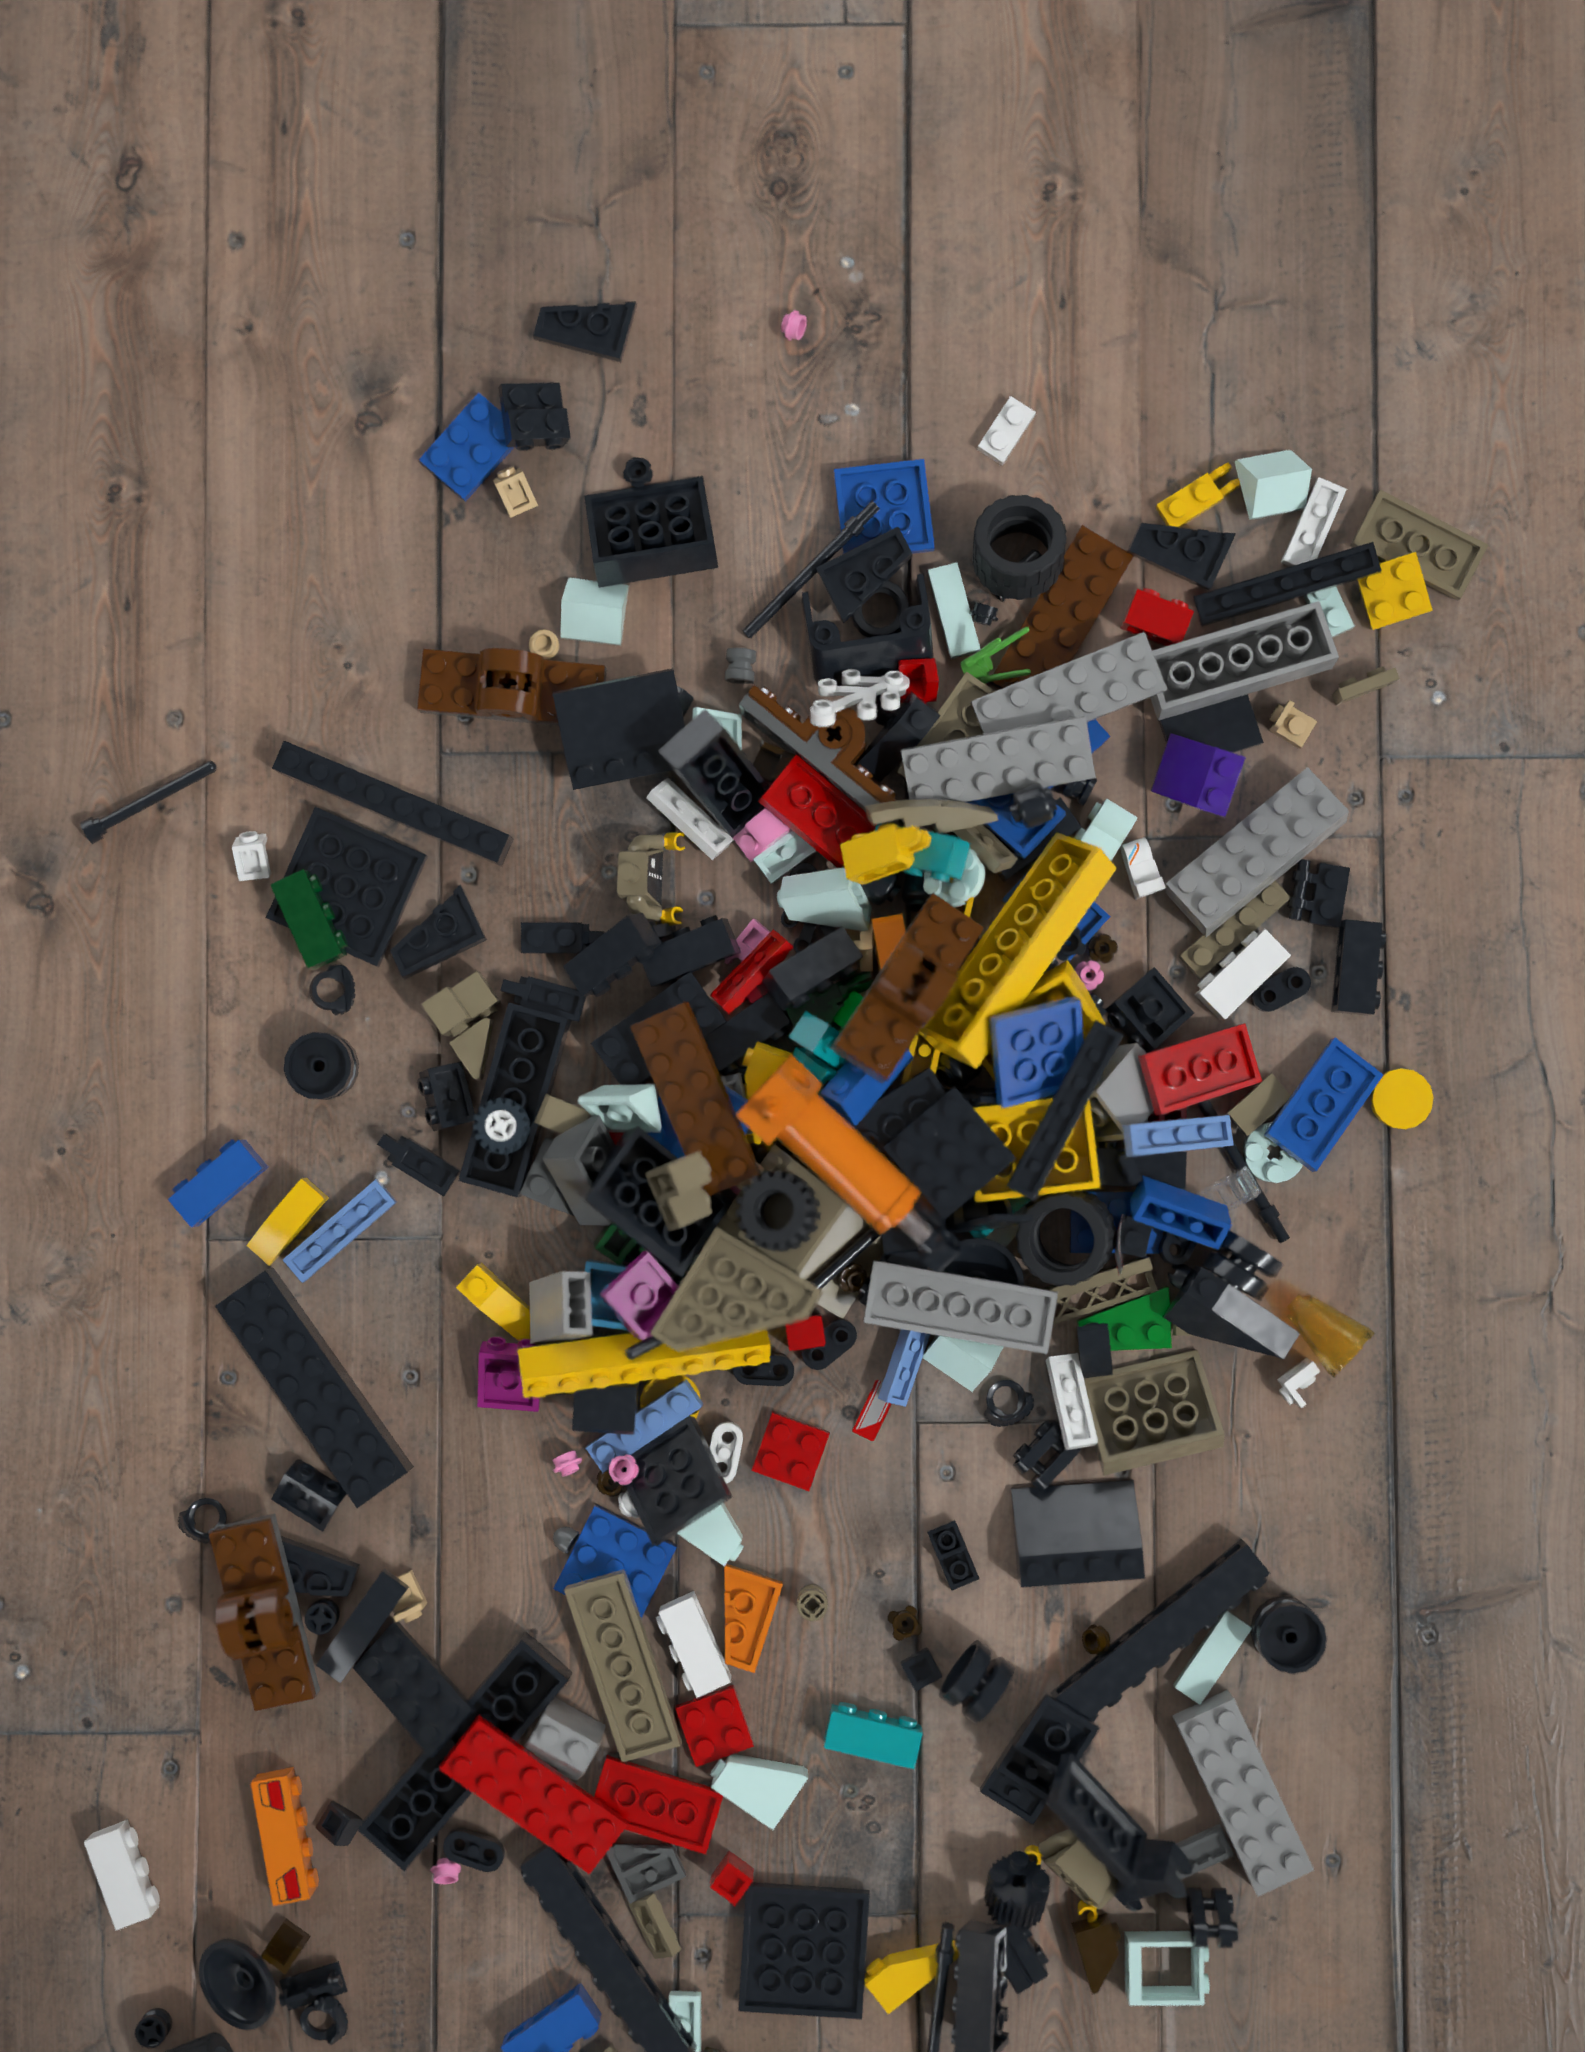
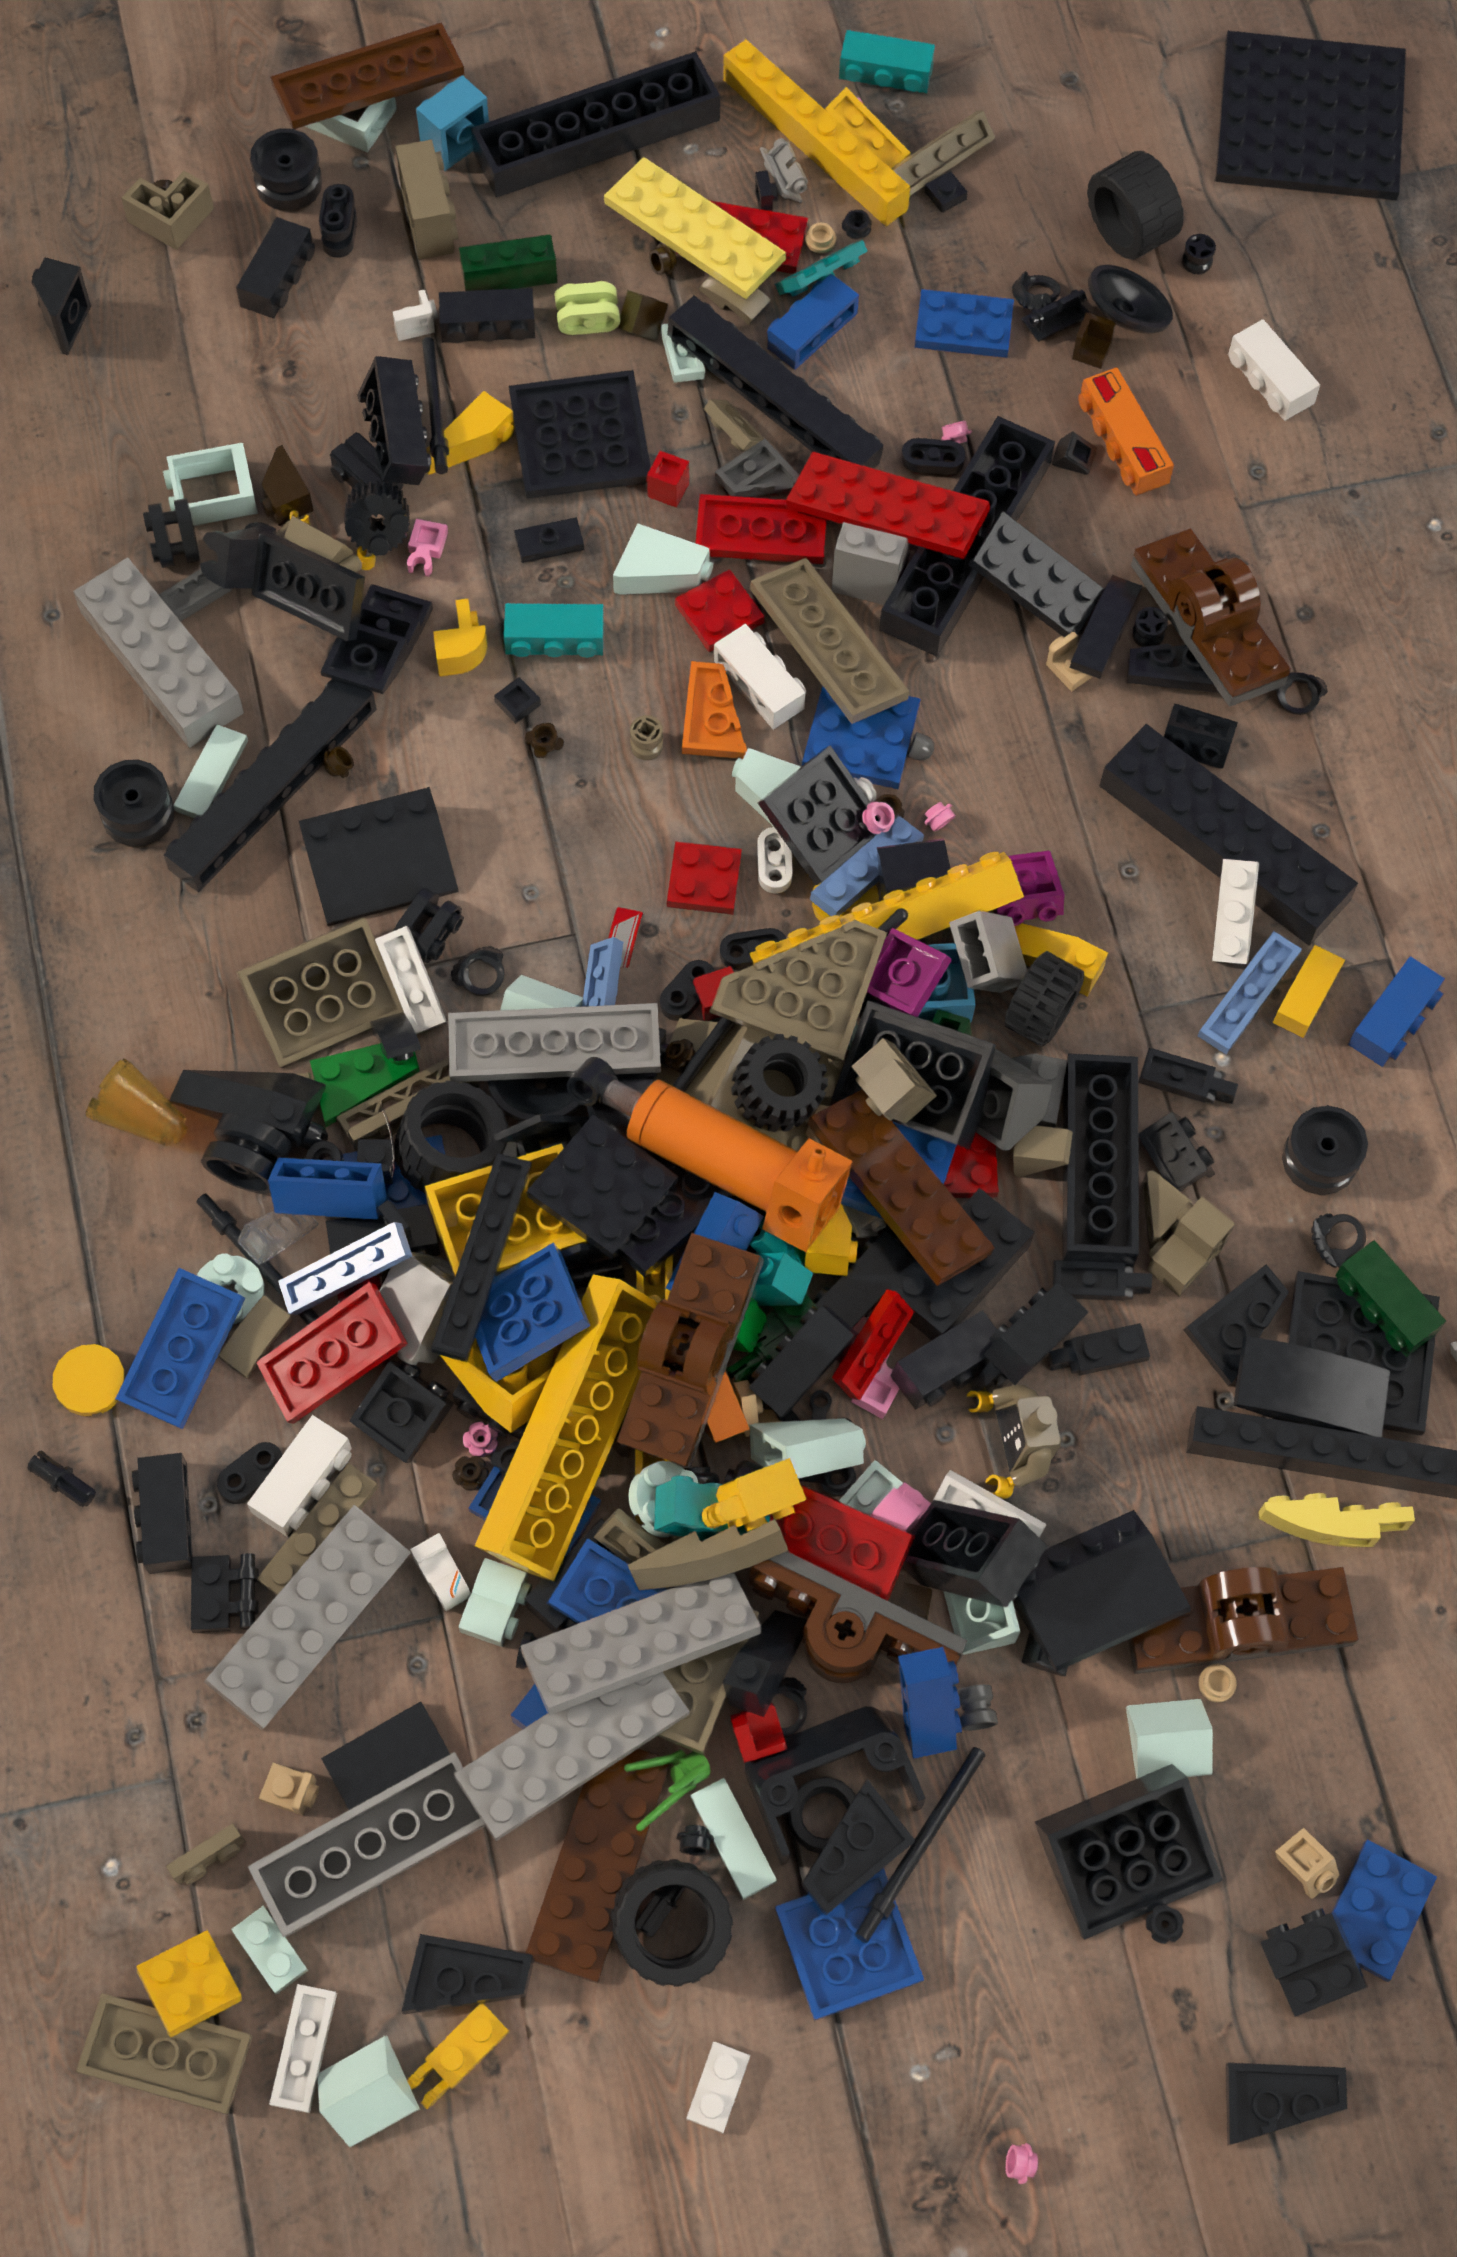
camera: 160 degrees right, 20 degrees down
(331, 1305) = (1235, 911): none -> white plate
(398, 857) = (1311, 1387): none -> black slope
(404, 1998) = (964, 323): none -> blue plate
(420, 752) = (1323, 1522): none -> light yellow slope
(496, 1116) = (1107, 1105): black wheel -> none
(523, 1255) = (1044, 998): none -> black tyre
(624, 1107) = (979, 1170): light aqua slope -> none
(779, 666) = (929, 1702): none -> blue brick
(857, 1838) = (549, 540): none -> black plate
(892, 686) = (790, 1717): white plant -> none
(953, 1555) = (506, 812): black slope -> none
(960, 1736) = (463, 647): none -> yellow brick
(972, 1859) = (426, 542): none -> bright pink plate
(976, 1681) = (457, 693): black wheel -> none
(1033, 806) = (588, 1593): black head -> none
(1157, 617) = (479, 1881): red brick -> none
(1198, 774) = (395, 1687): dark purple slope -> none
(1287, 584) = (324, 1959): black tile -> none
(1299, 1376) = (163, 1058): white bracket -> none
(1436, 1016) = (61, 1479): none -> black axle

